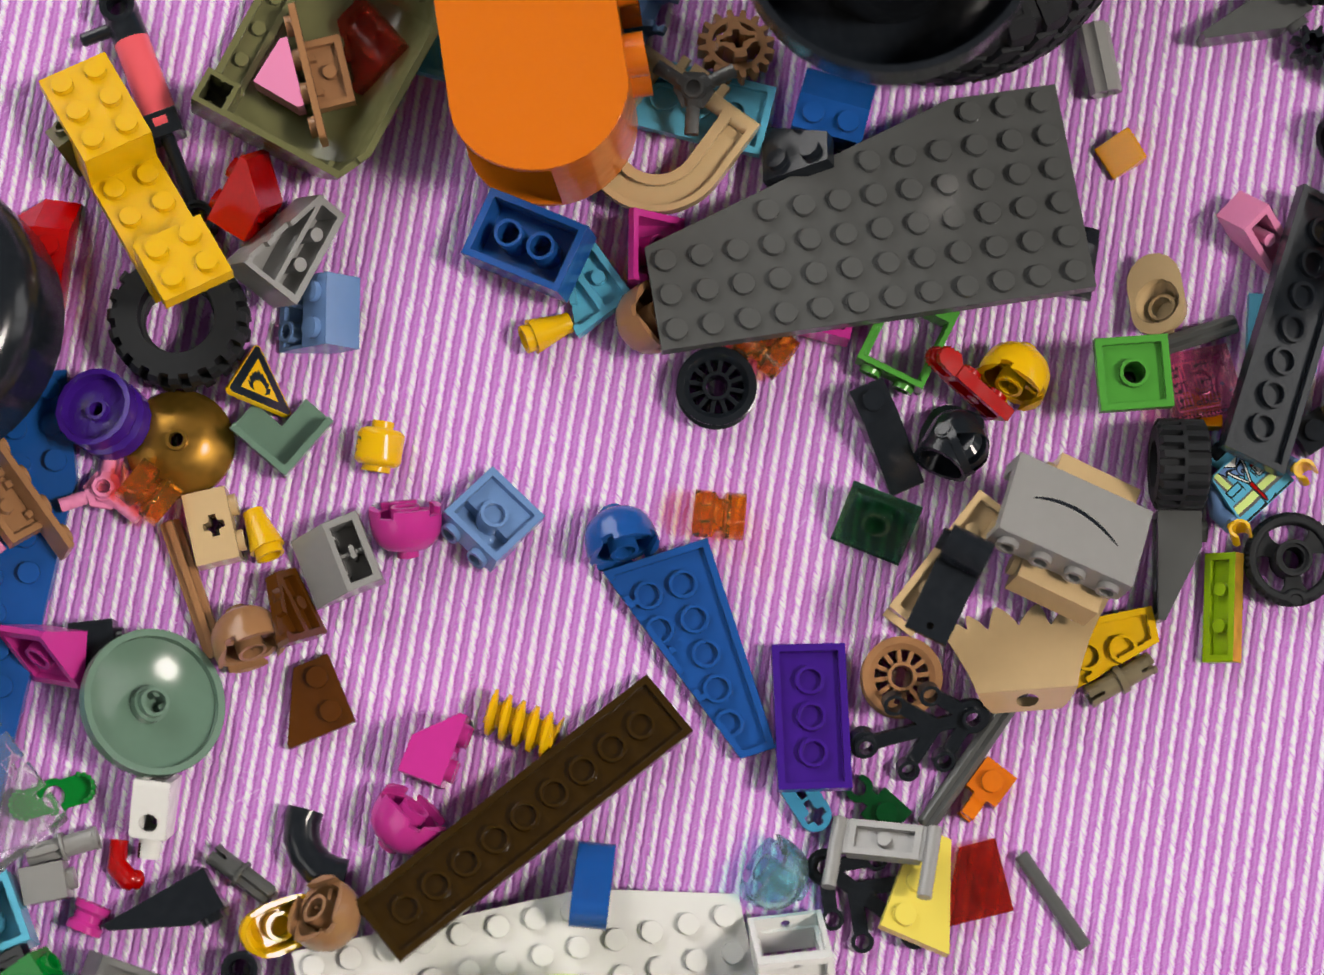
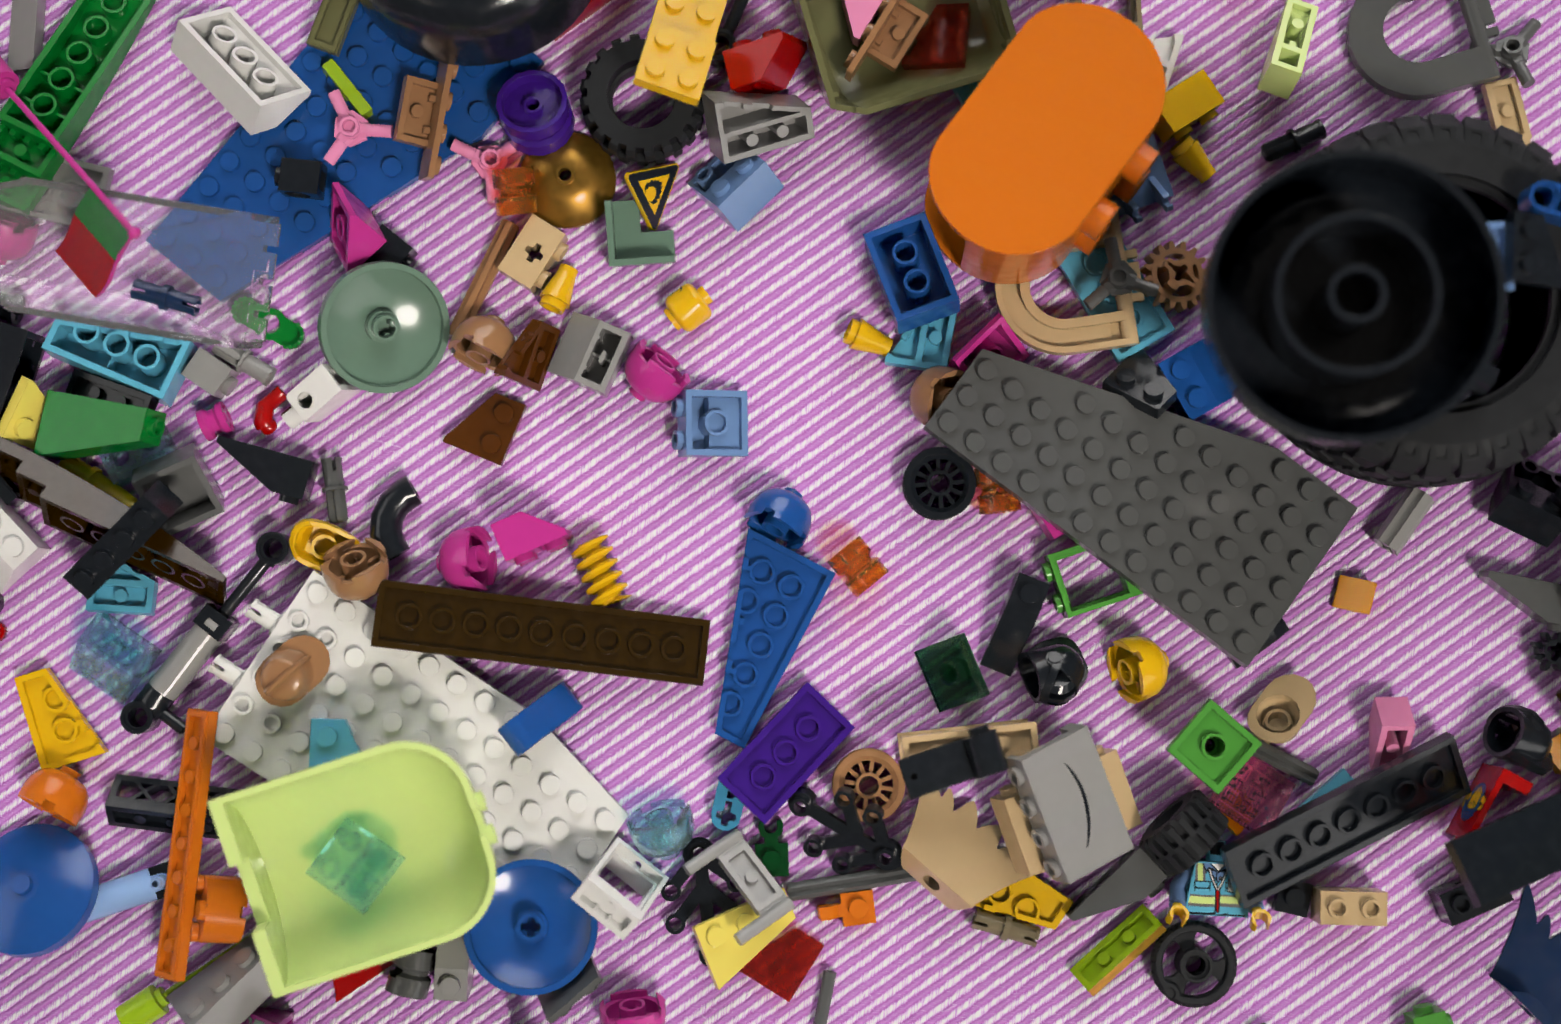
camera: 50 degrees right, 5 degrees up
(967, 383) = (1101, 642): red hinge -> none

